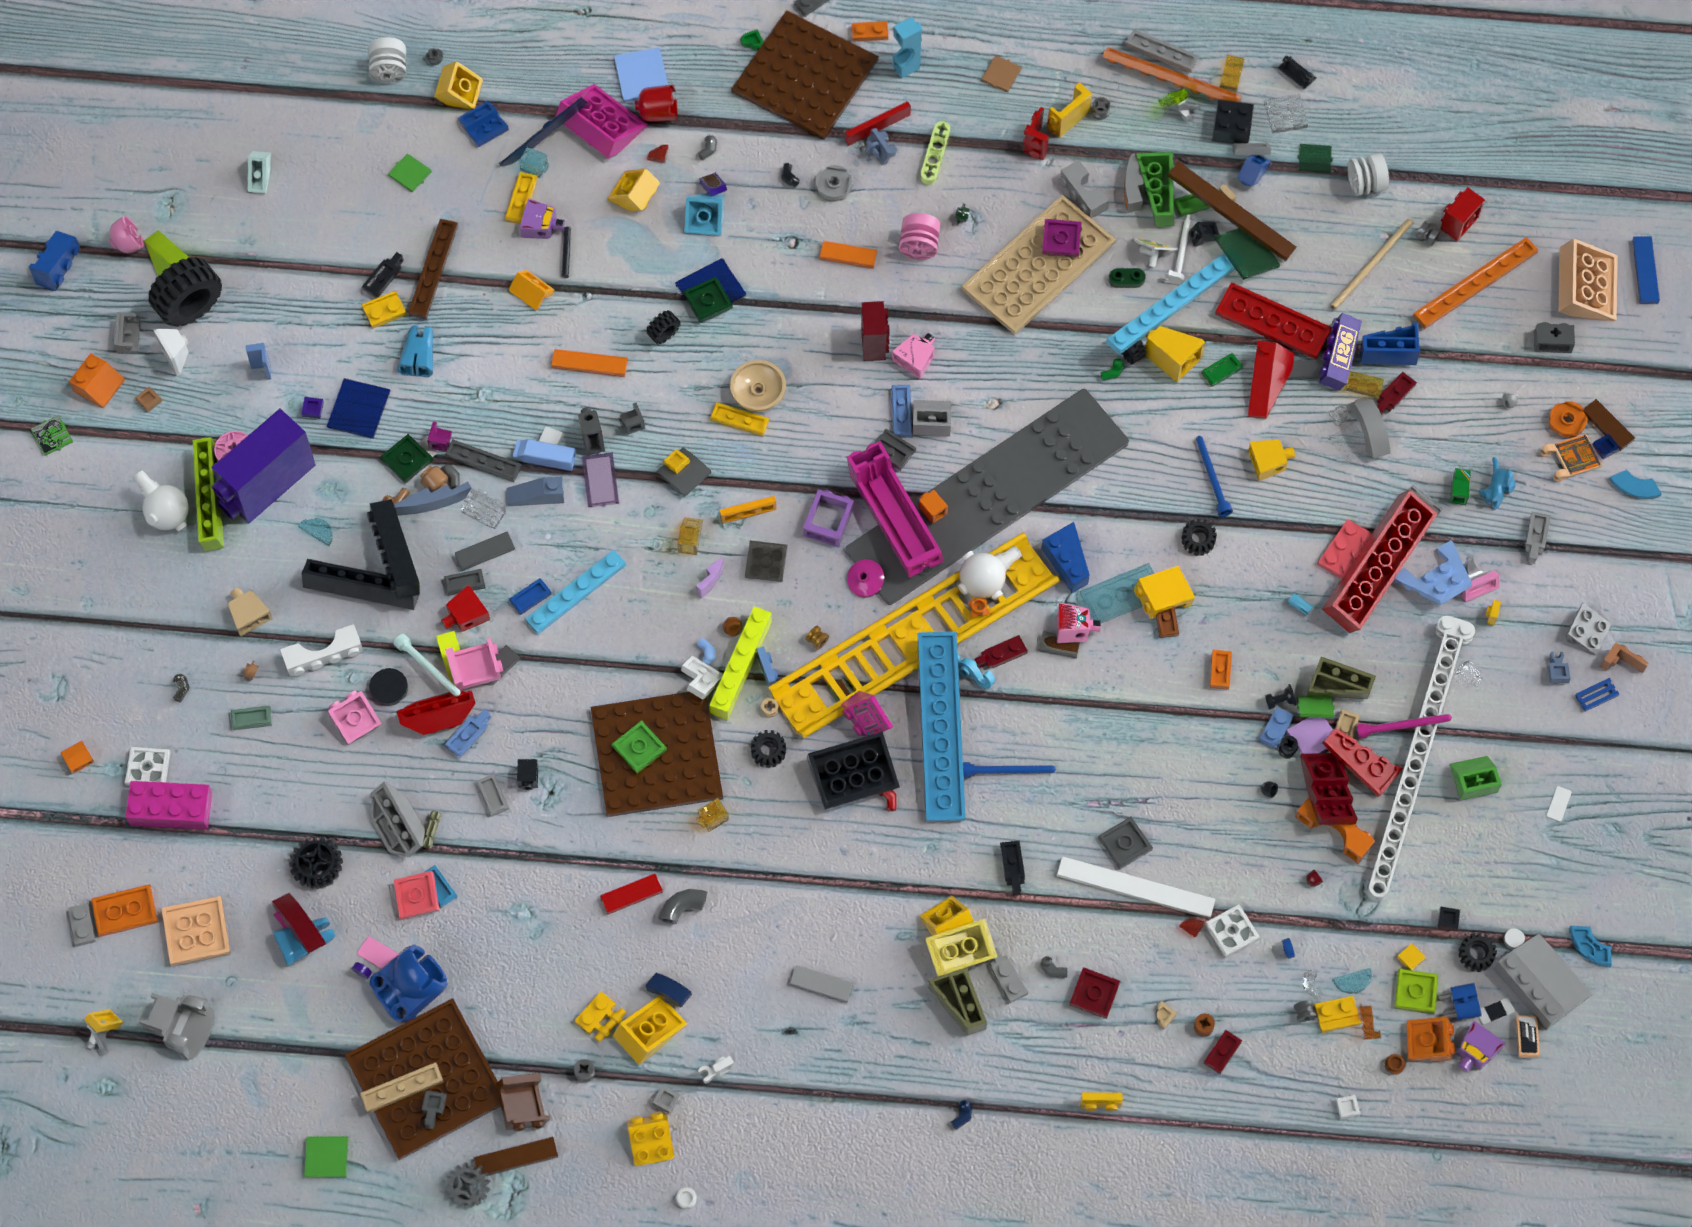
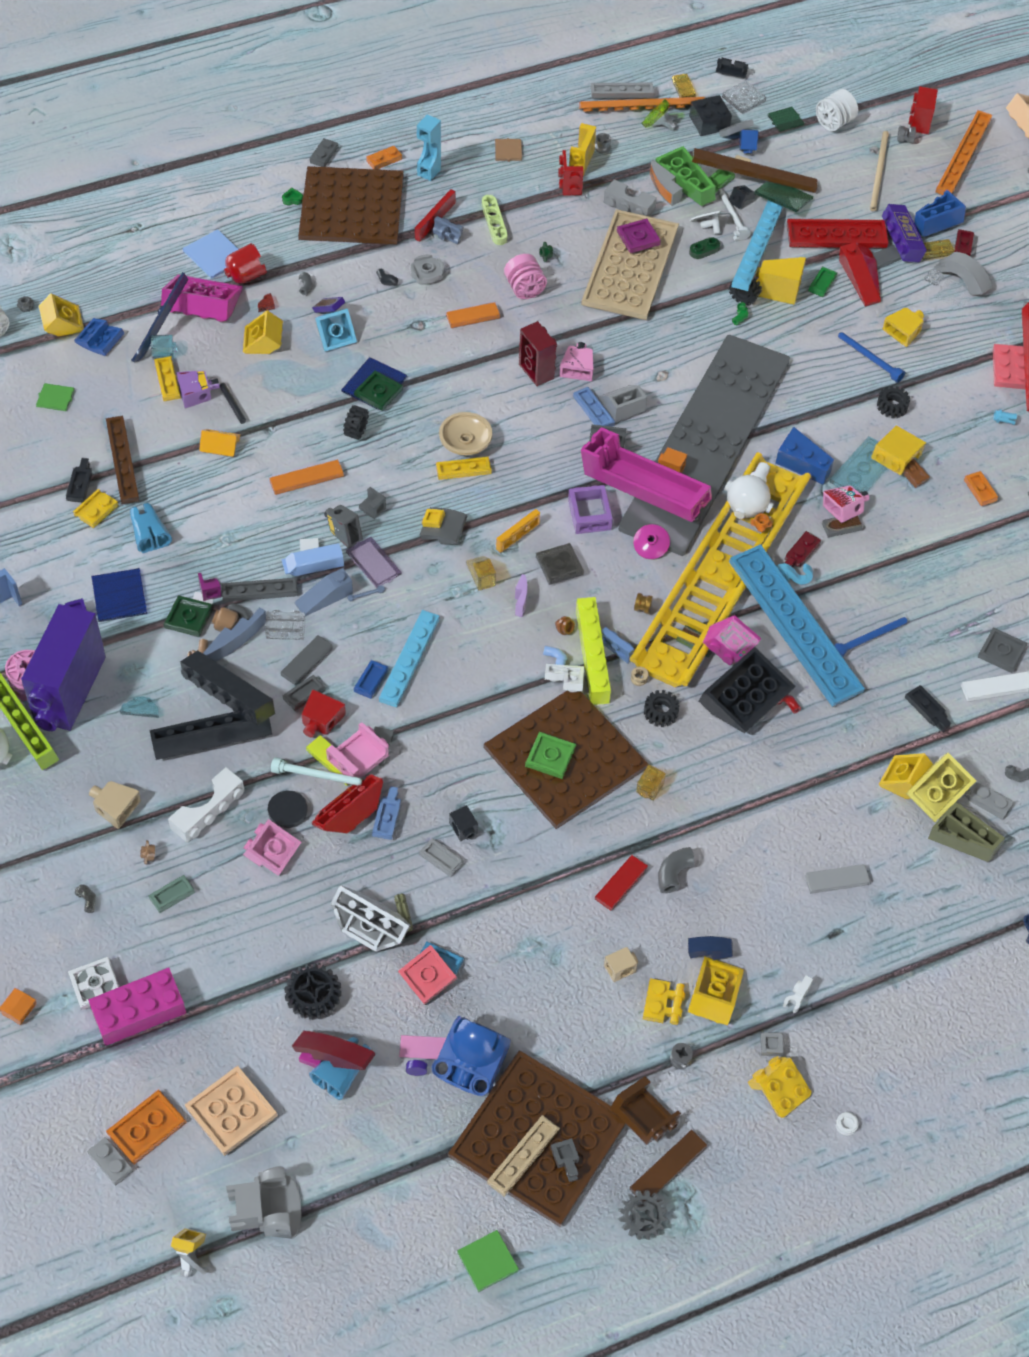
camera: 30 degrees left, 10 degrees down
(583, 966) = (620, 964): none -> tan brick
(591, 510) = (380, 589): none -> sand blue hinge

